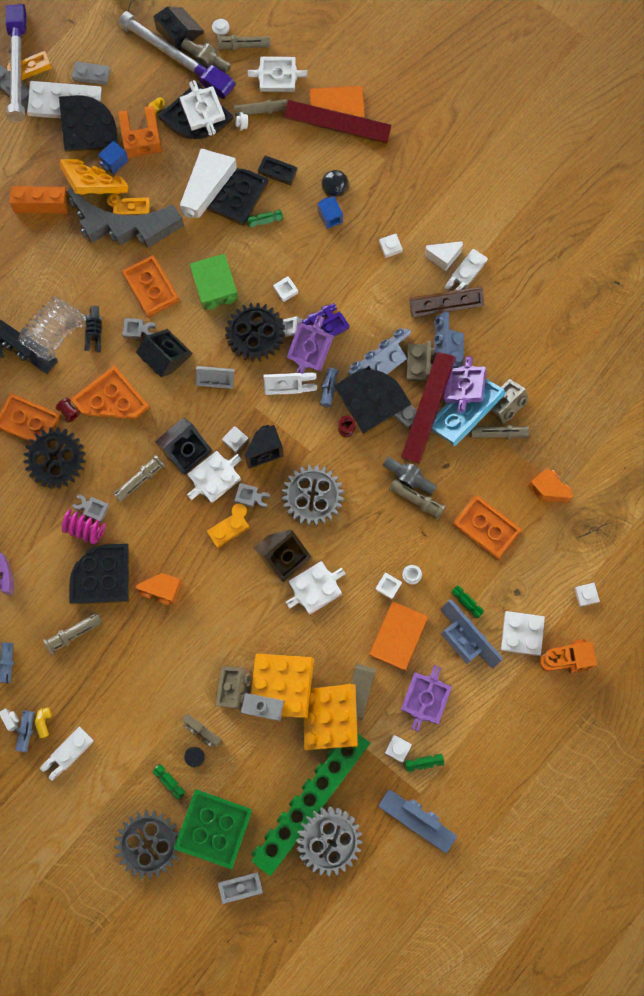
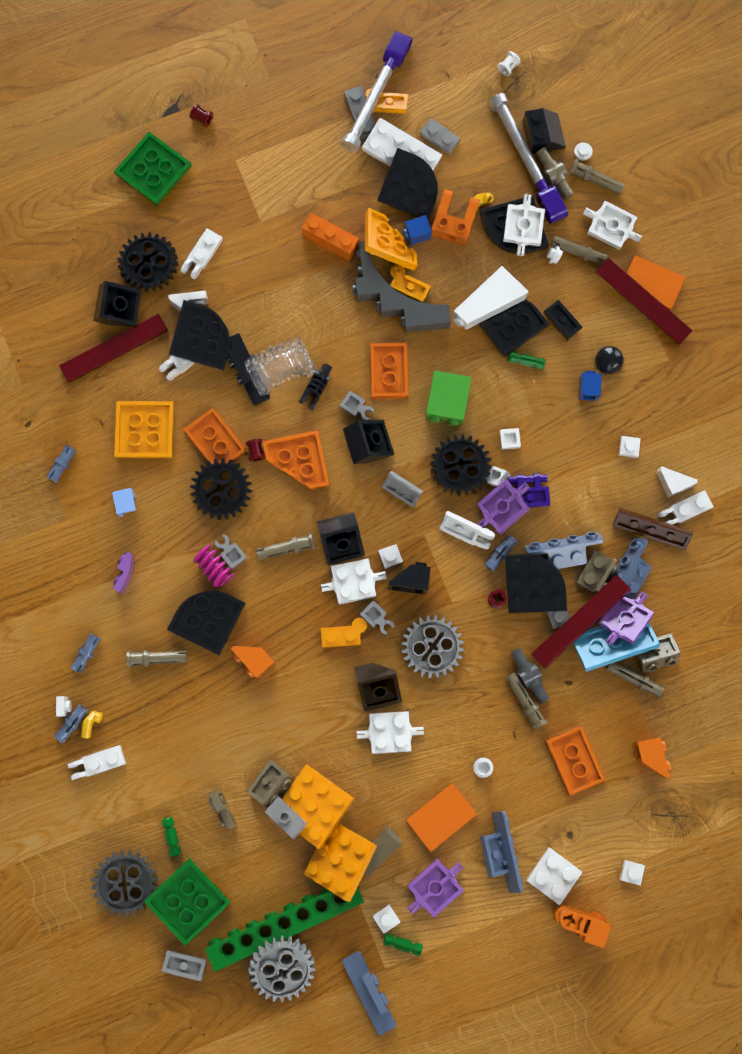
camera: 25 degrees right, 5 degrees up
(194, 757) = (205, 827): black tile -> none
(388, 586) = (456, 767): white plate -> none
(467, 601) = (520, 820): green axle -> none

